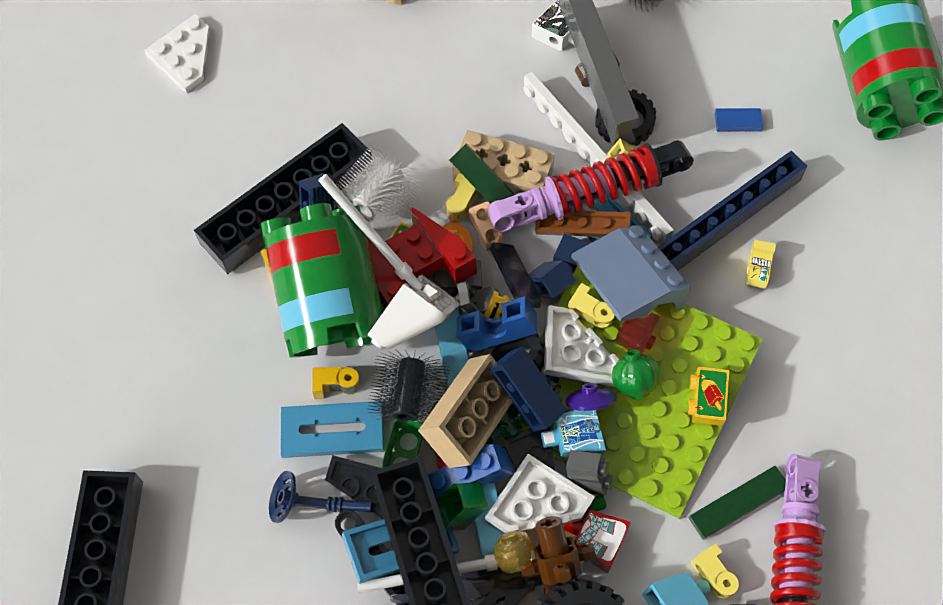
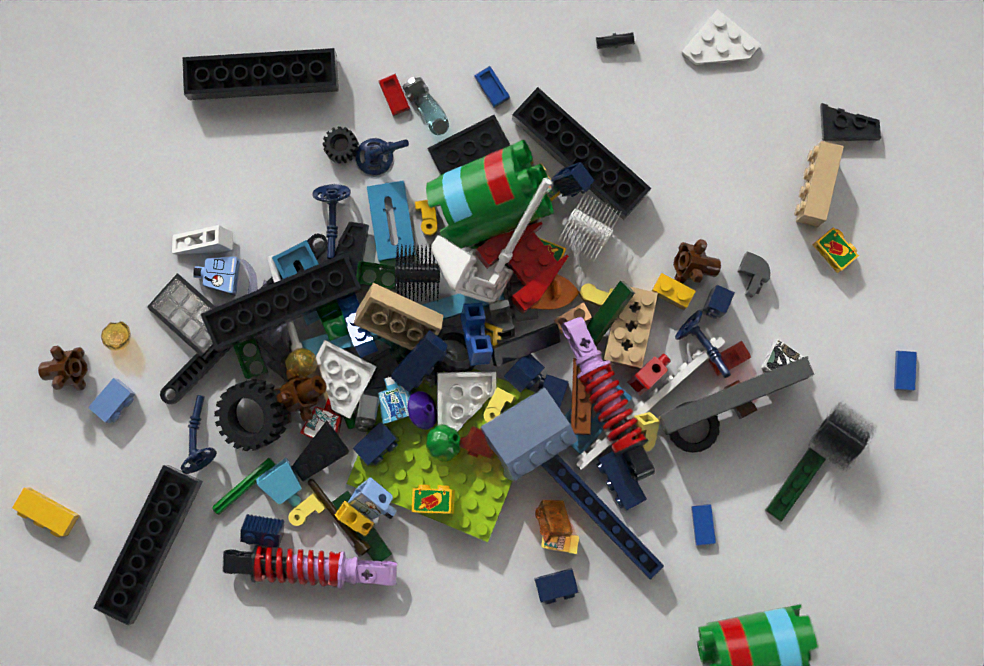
camera: 85 degrees right, 20 degrees up
(155, 153) = (615, 40): none -> black pin
(164, 411) = (394, 94): none -> red tile
(180, 293) = (492, 86): none -> blue tile
(197, 364) = (427, 105): none -> piece
(207, 471) = (333, 137): none -> black tyre
(235, 430) = (376, 155): none -> dark blue dish
(253, 327) = (468, 145): none -> black tile
(435, 94) = (693, 262): none -> reddish brown piece
(451, 39) = (757, 269): none -> dark grey brick
(468, 116) = (673, 291): none -> yellow brick
(484, 73) = (718, 302): none -> dark blue brick
(514, 100) = (691, 327): none -> dark blue dish
(550, 72) = (732, 357): none -> clear red brick
(566, 147) = (645, 377): none -> torso
(631, 465) = (376, 444): none -> dark blue brick
(638, 539) = (321, 452): none -> black wing
(686, 192) = (620, 481): none -> dark blue brick
(695, 31) = (795, 484): none -> dark green tile
(704, 480) = (372, 500): none -> light blue torso
(729, 504) = (354, 518): none -> yellow leg
(734, 267) = (553, 519): none -> clear orange bracket
(767, 501) = (360, 546): none -> dark brown piece
(813, 274) = (556, 586): none -> dark blue brick

